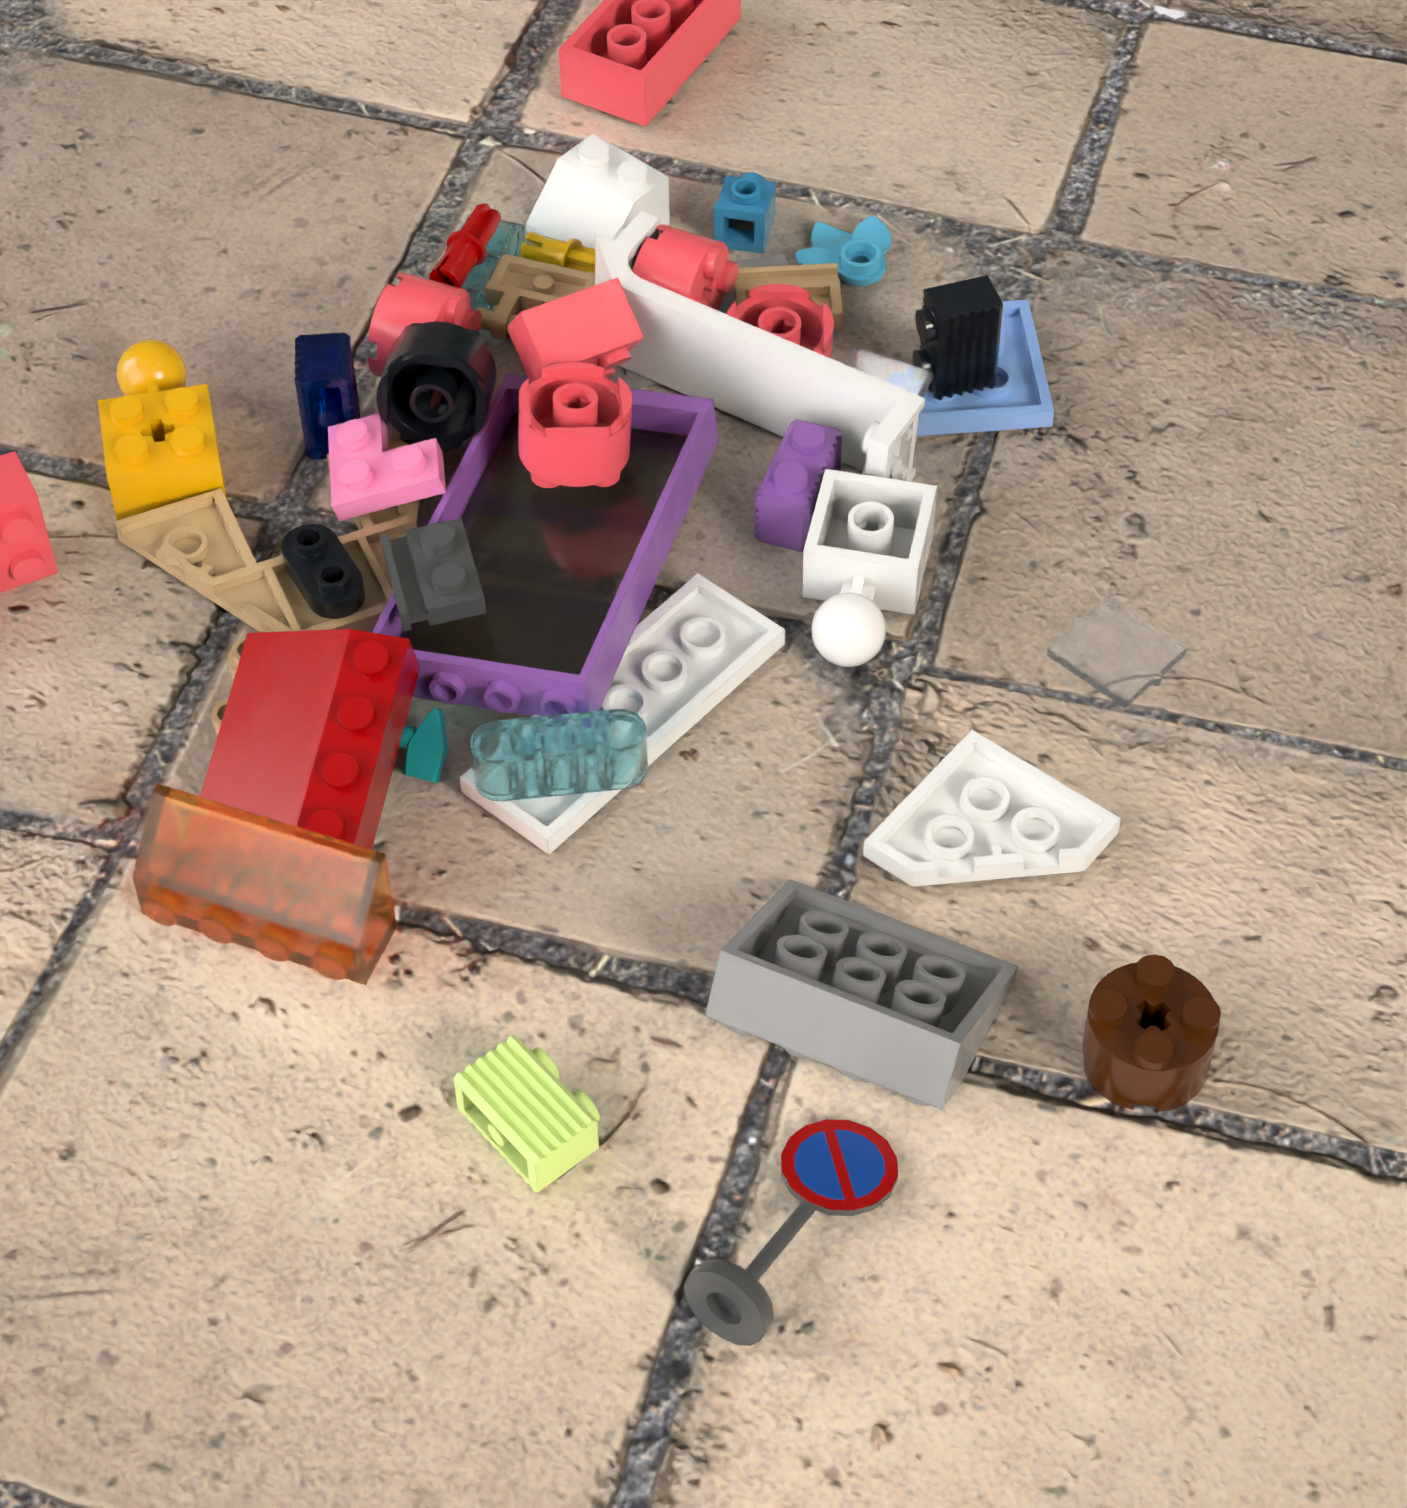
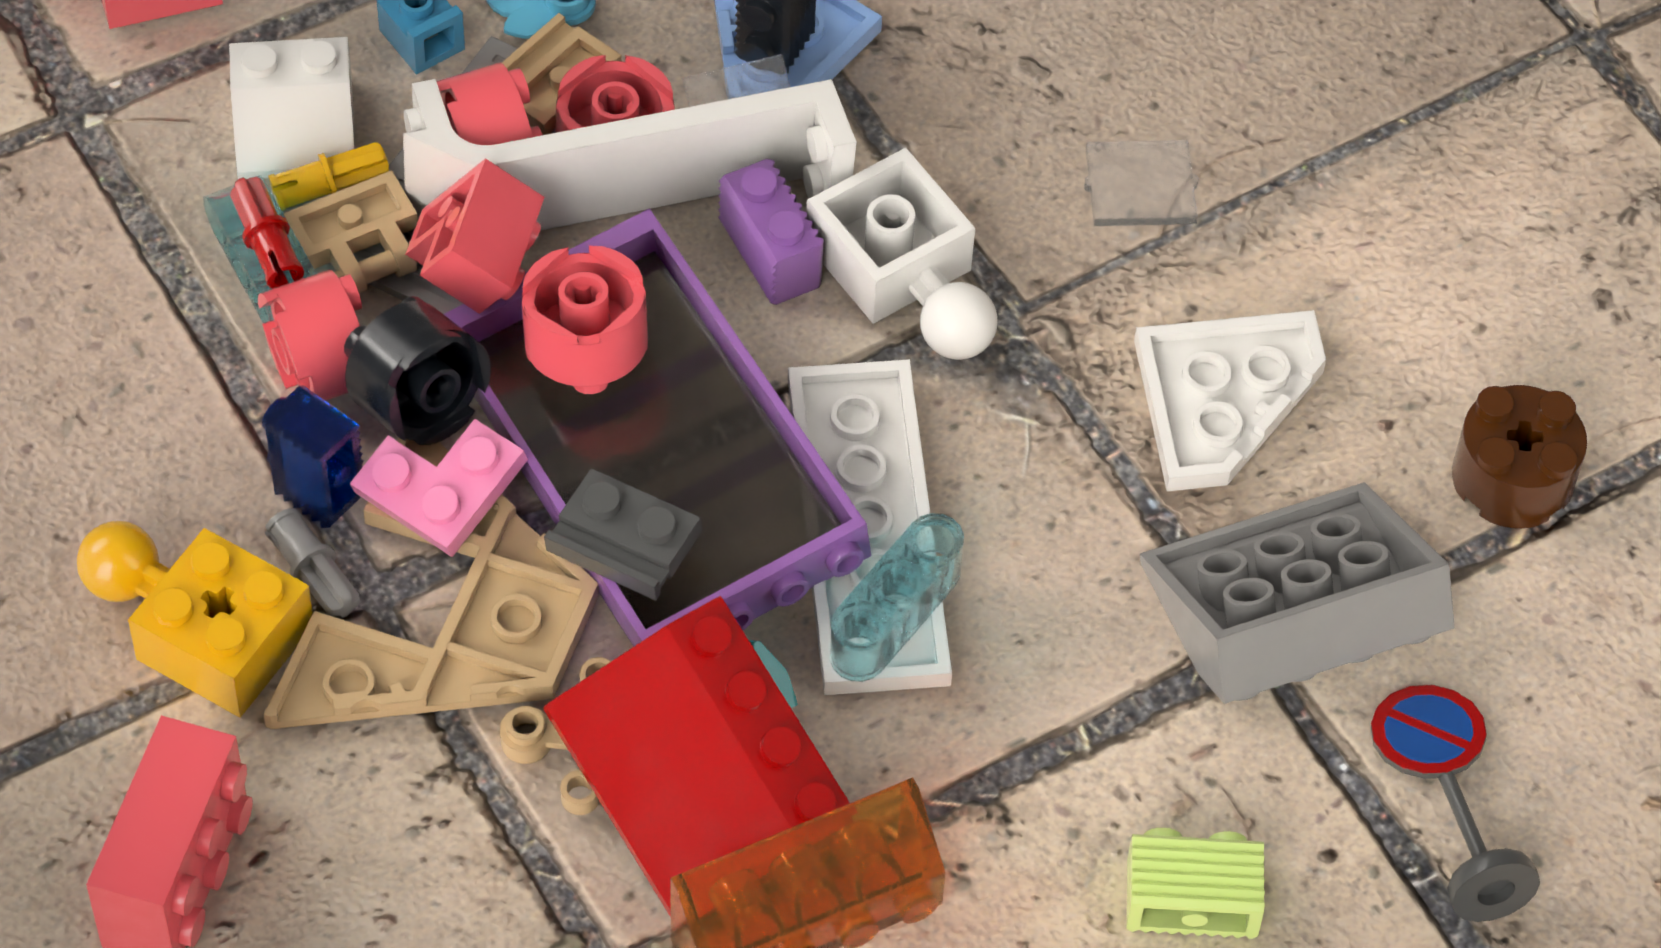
camera: 50 degrees left, 5 degrees up
(265, 465) = (312, 563): none -> light grey axle
(317, 560) = (502, 608): black plate -> none

